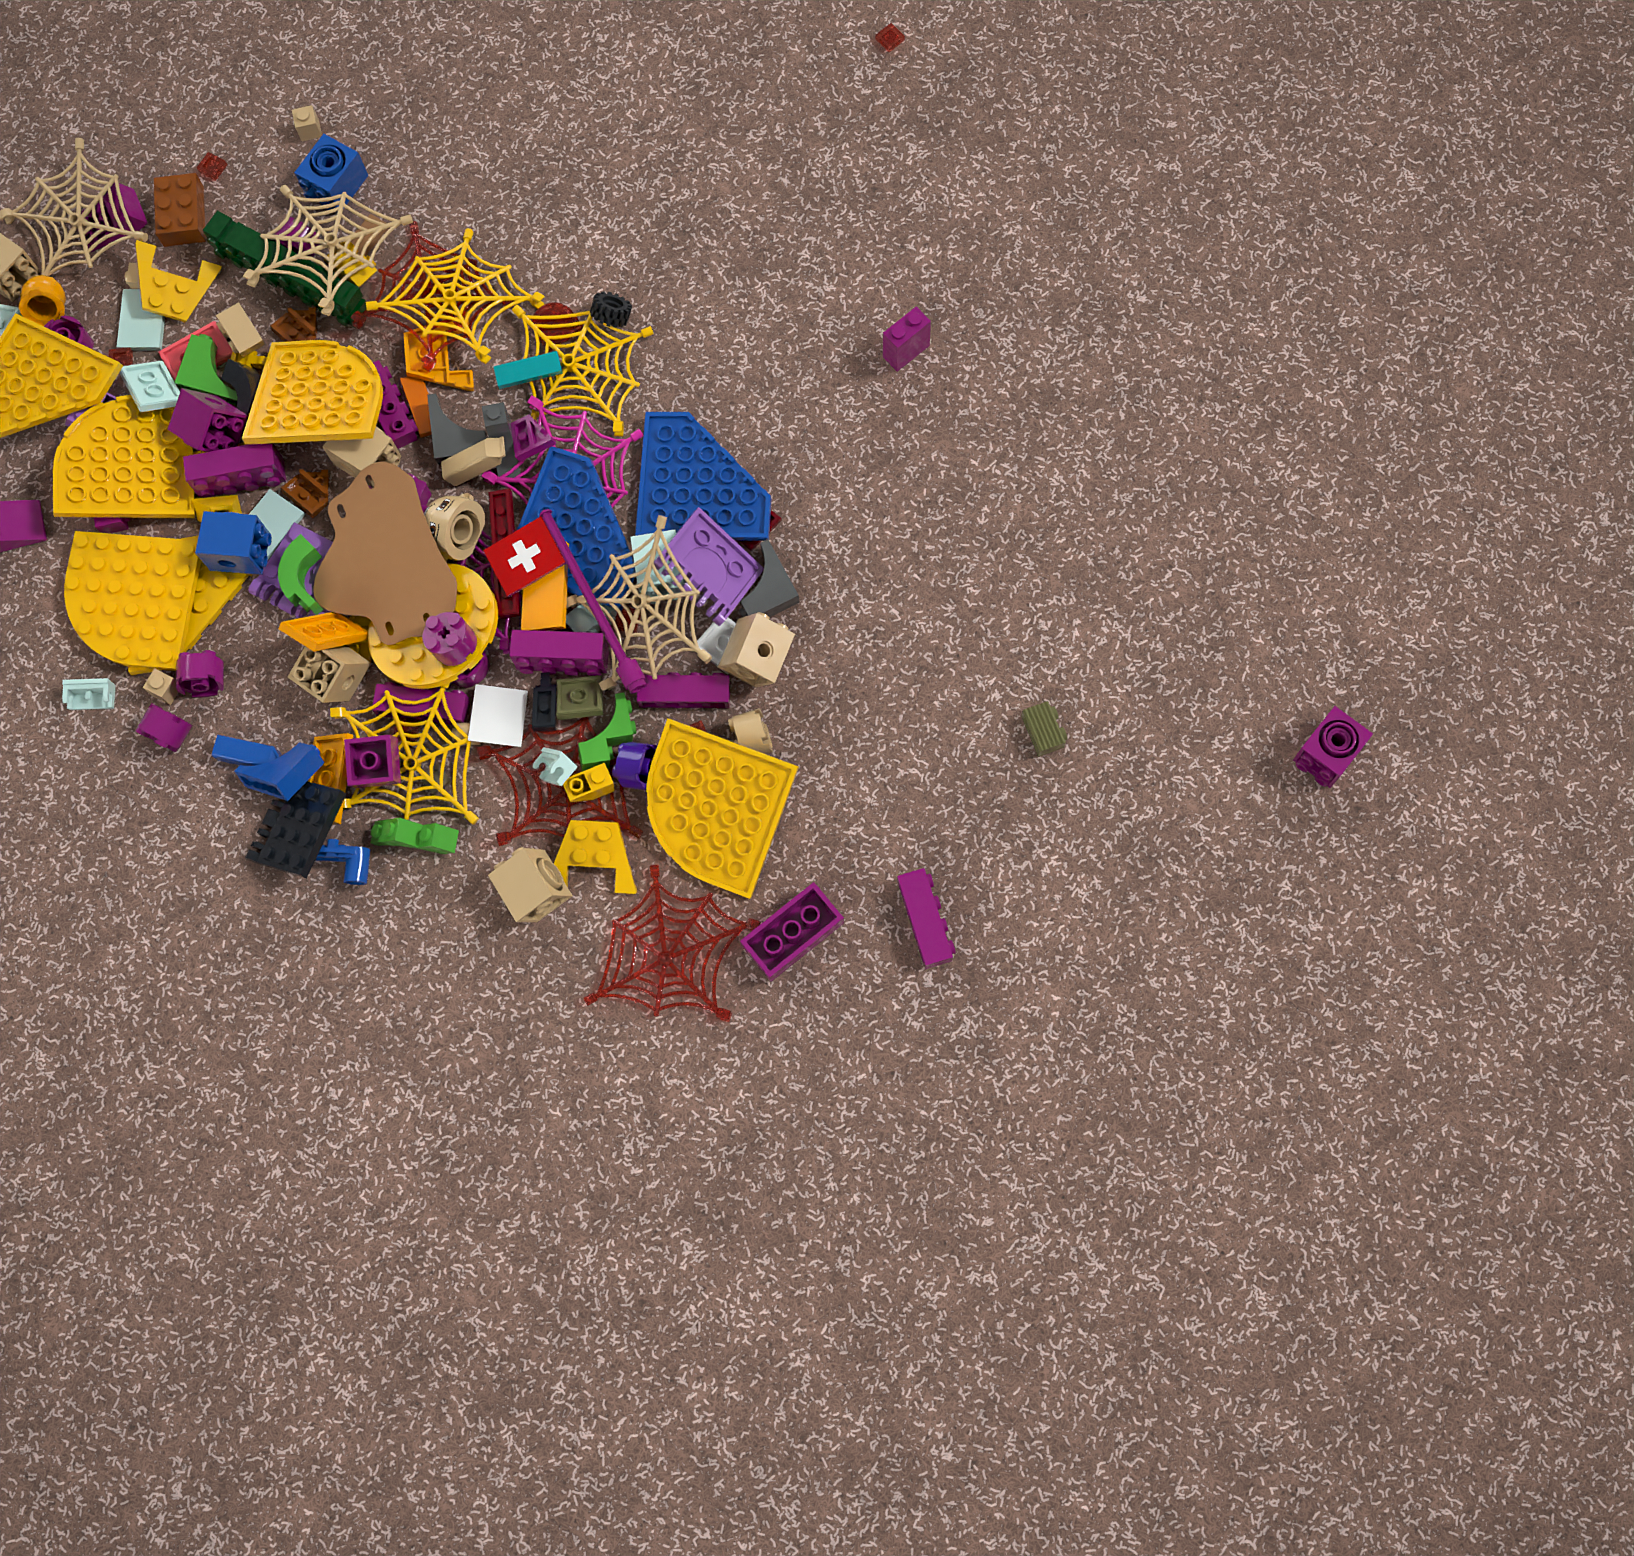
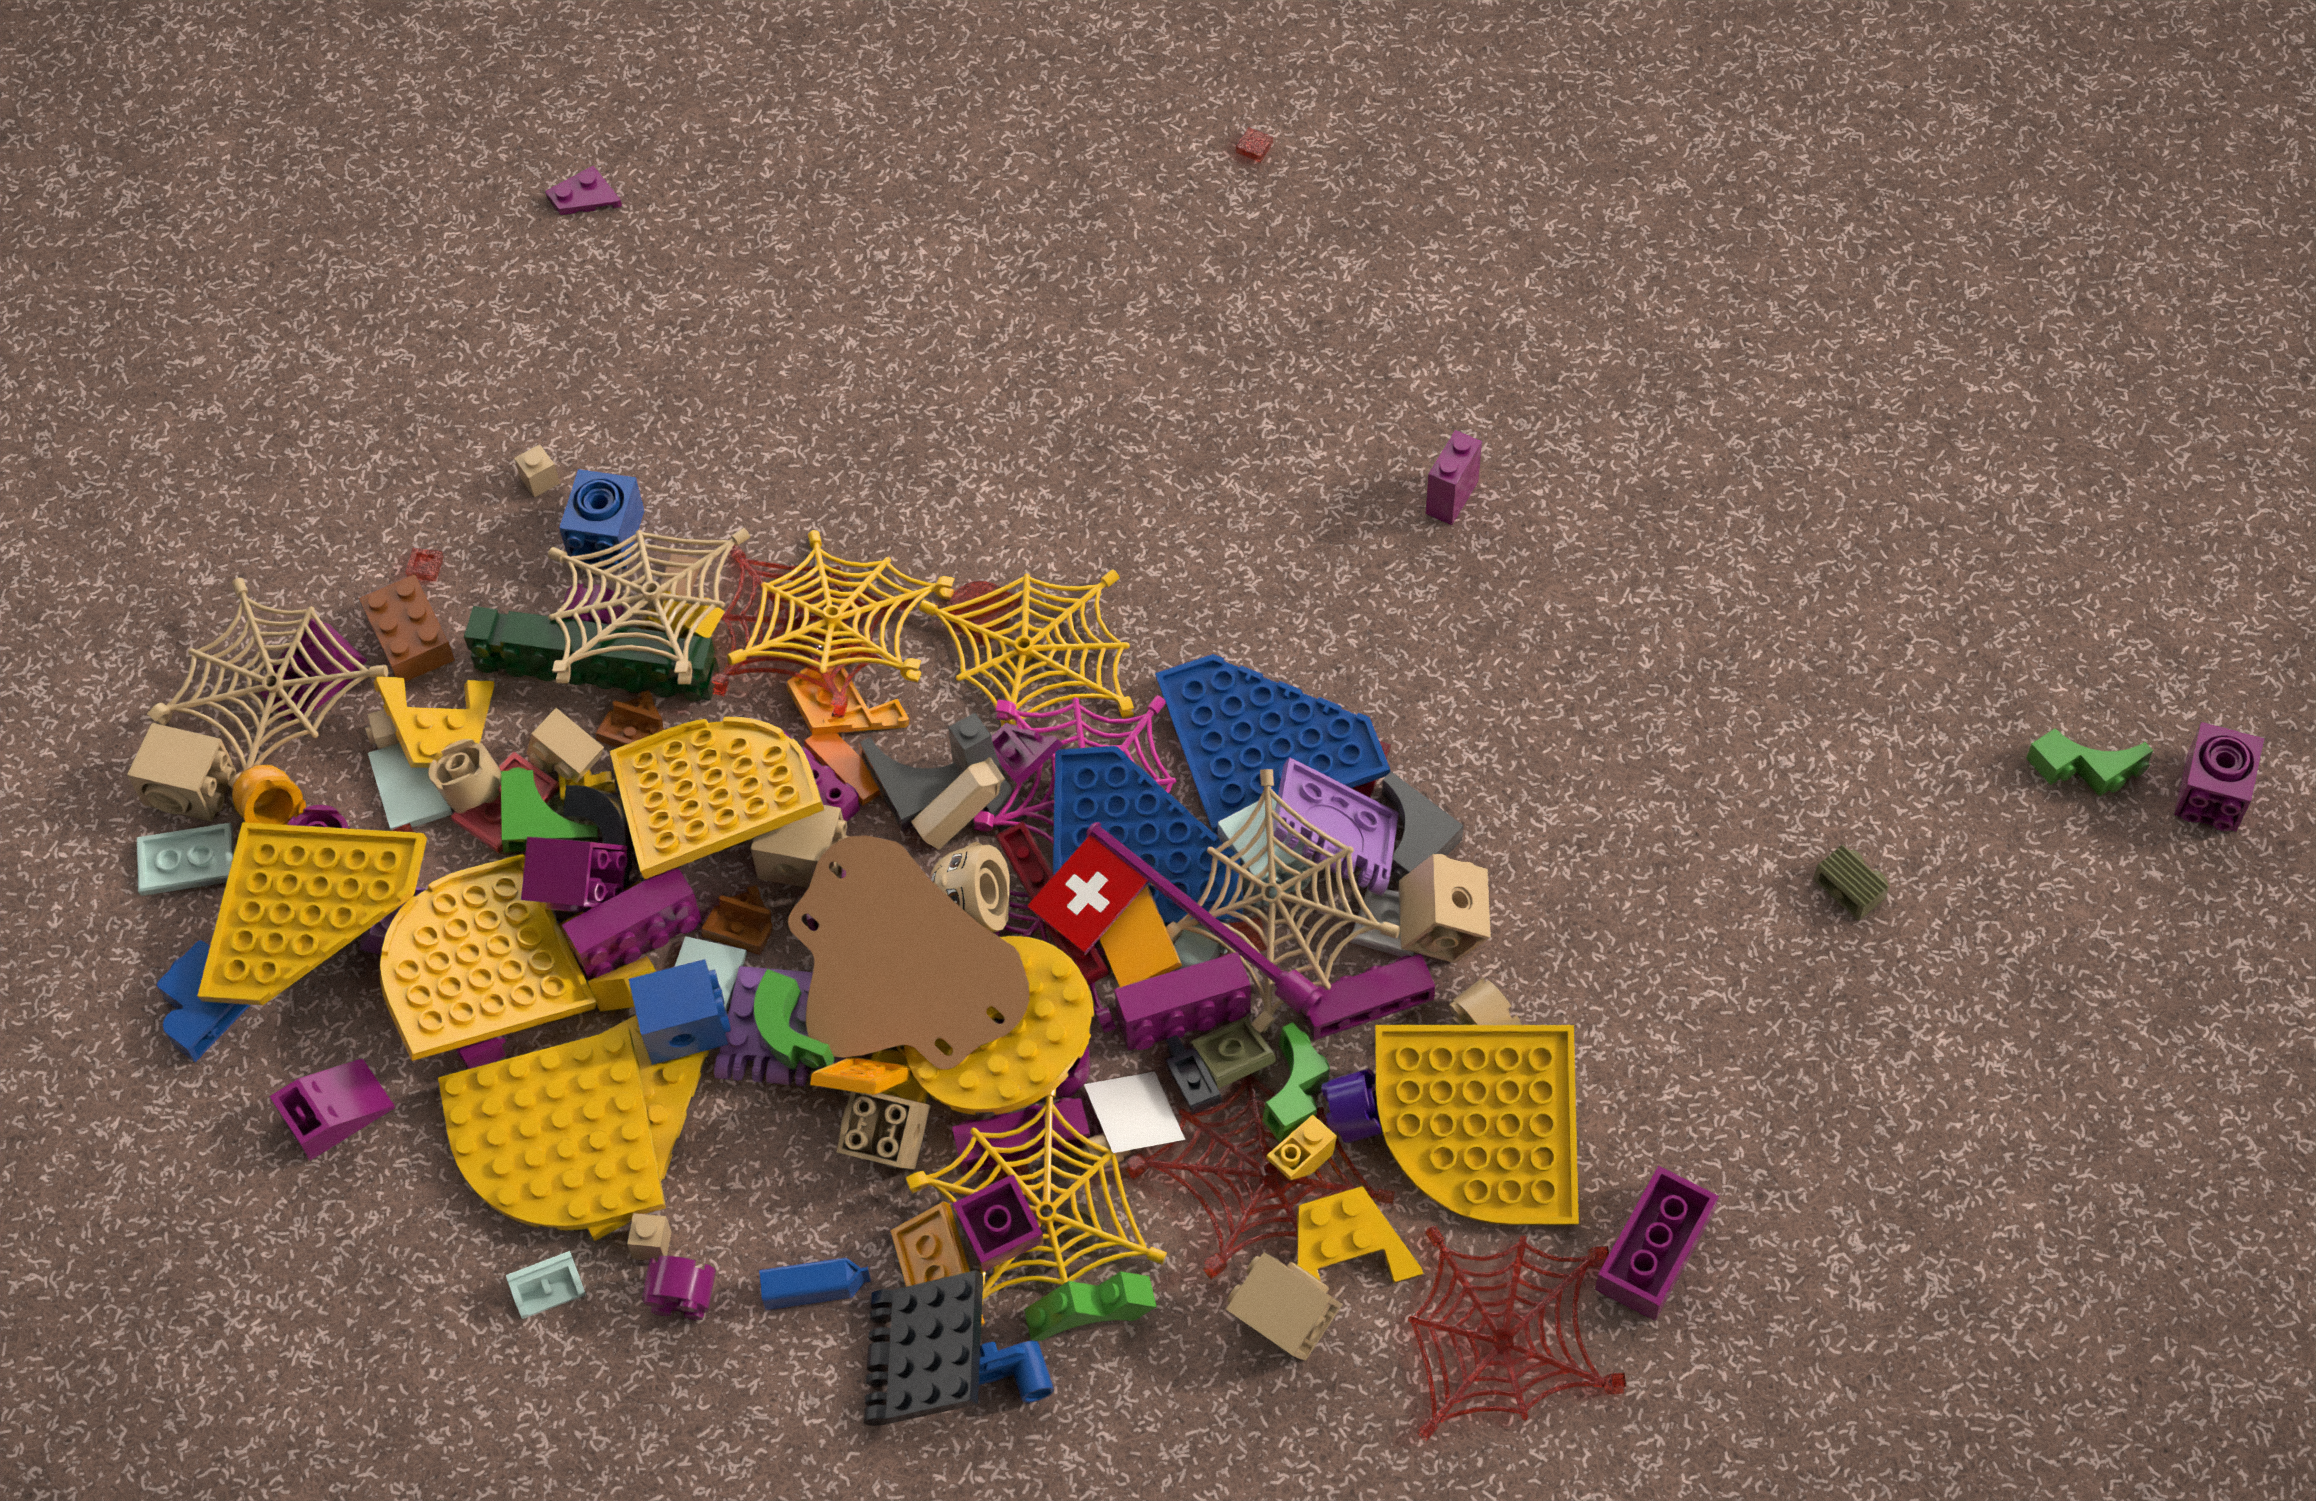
camera: 25 degrees left, 15 degrees down
(150, 385) = (470, 857): light aqua tile -> none
(171, 327) = (466, 775): none -> tan brick
(199, 674) = (698, 1200): magenta brick -> none
(283, 775) = (875, 1290): blue arch -> none
(449, 638) = (1042, 1022): magenta brick -> none
(528, 370) = (975, 672): teal tile -> none
(557, 765) = (1249, 1142): light aqua hinge -> none
(610, 309) = (1052, 565): black tyre -> none
(925, 918) = (1819, 1164): magenta brick -> none
(1257, 713) = (2060, 758): none -> bright green arch

